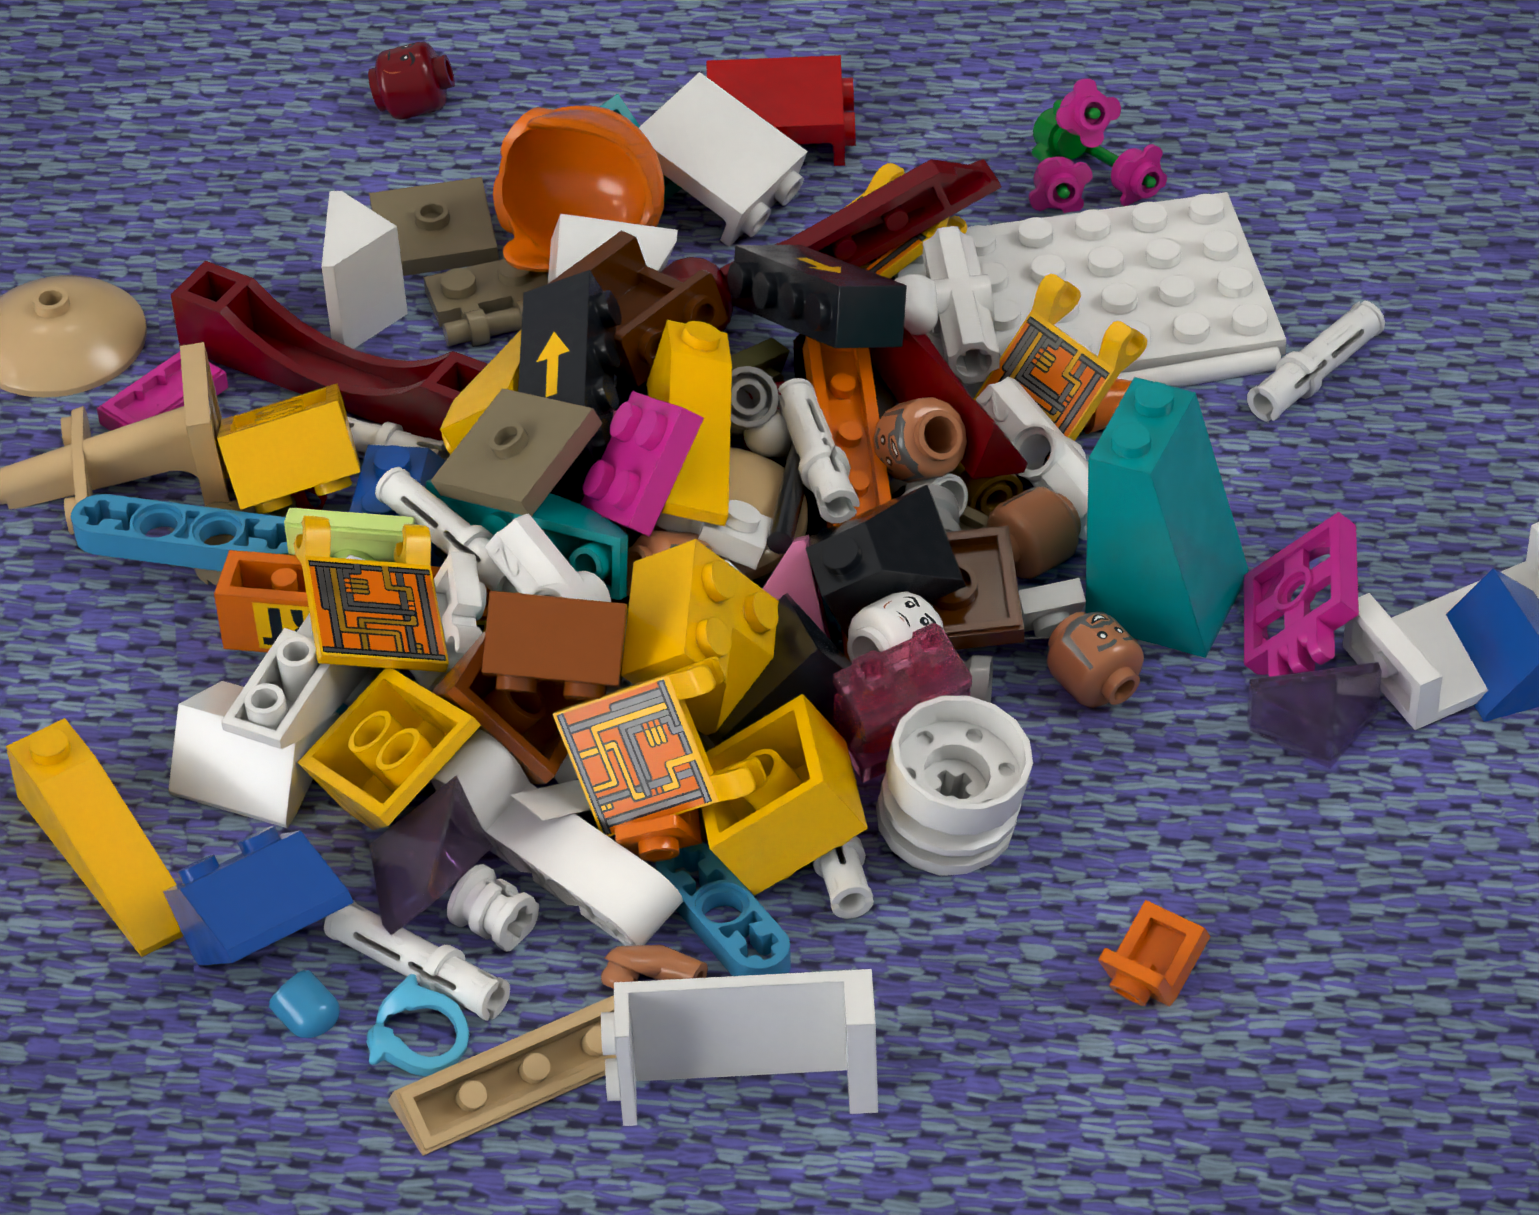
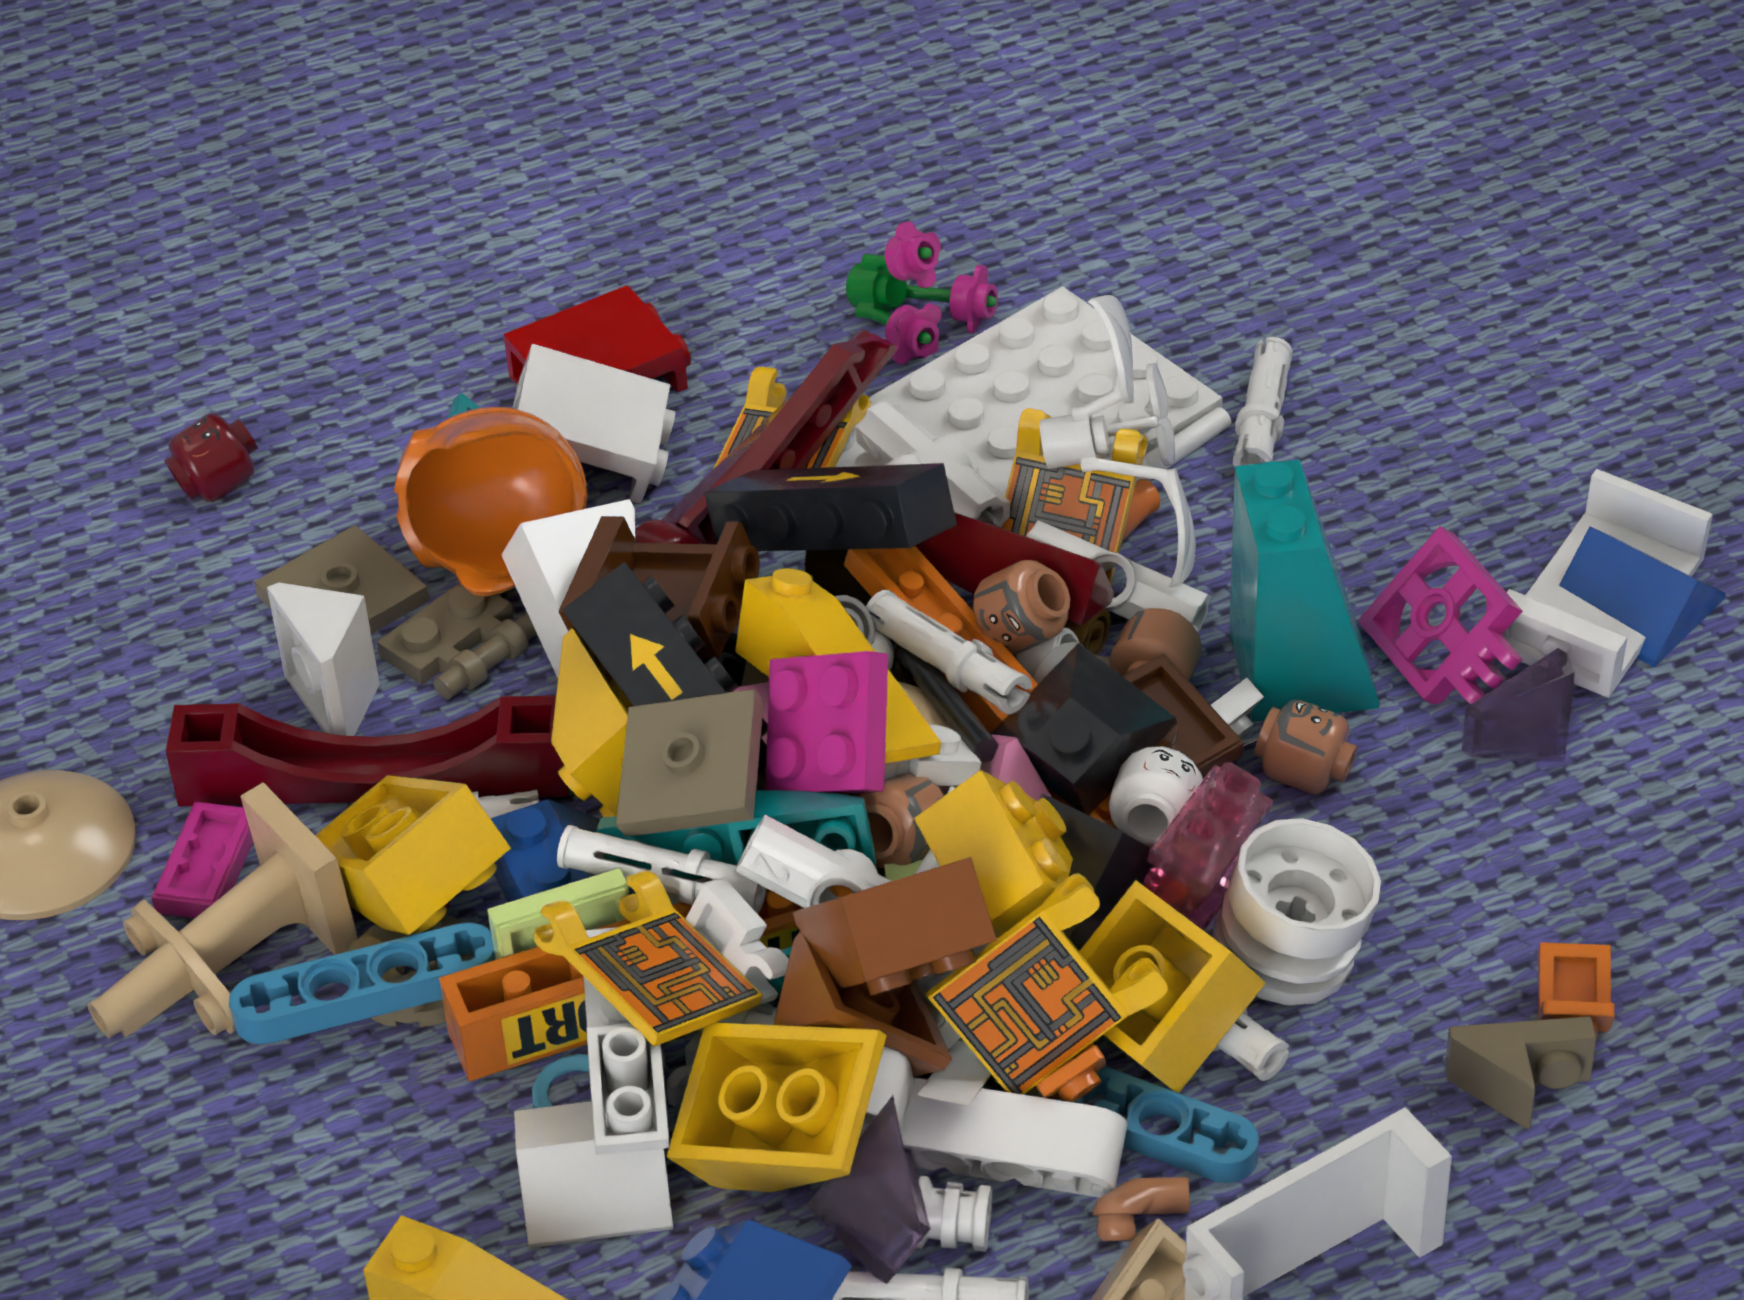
camera: 30 degrees left, 0 degrees up
(1051, 984) = (1508, 1059): none -> dark tan slope
(1080, 316) = (1082, 438): none -> white plant

